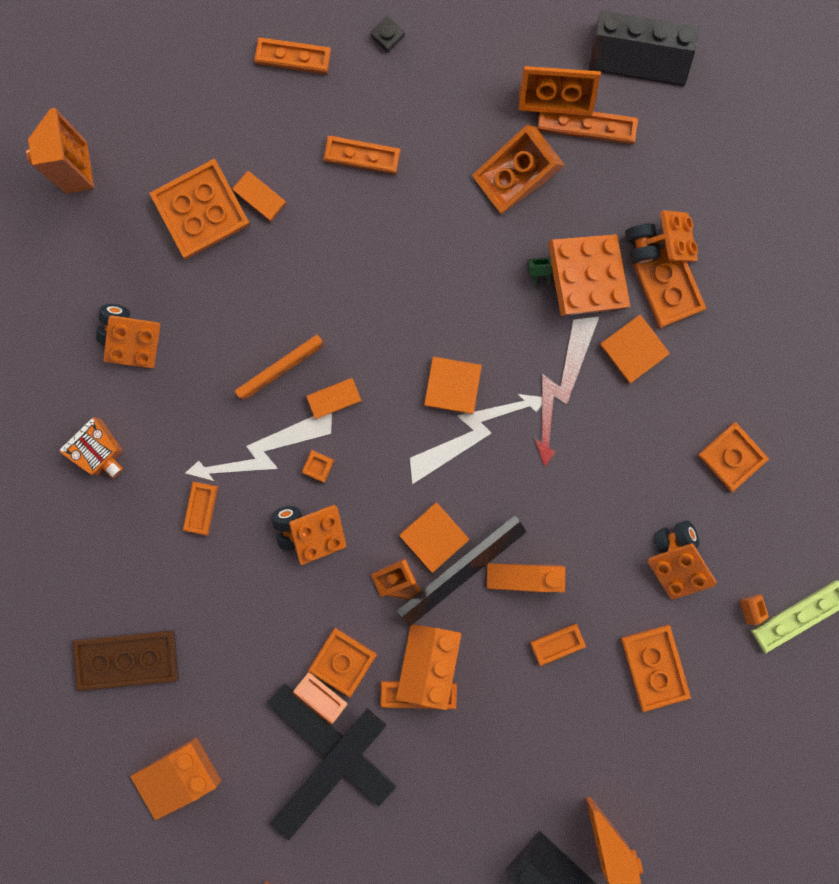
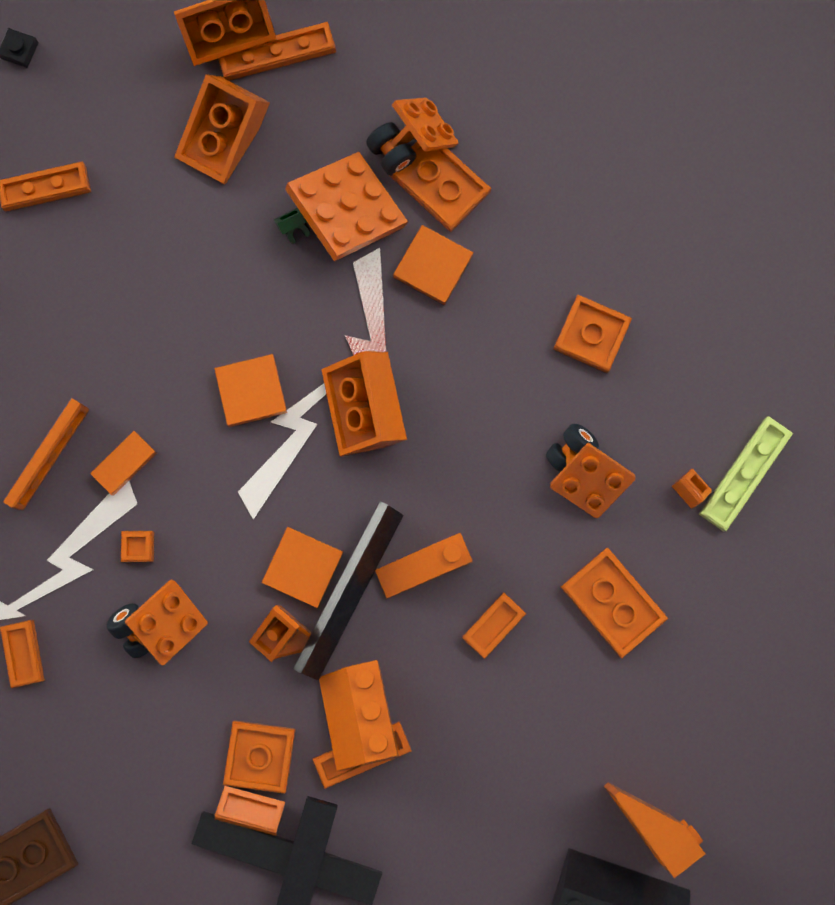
camera: 30 degrees left, 5 degrees down
(534, 434) = (363, 403): none -> orange slope

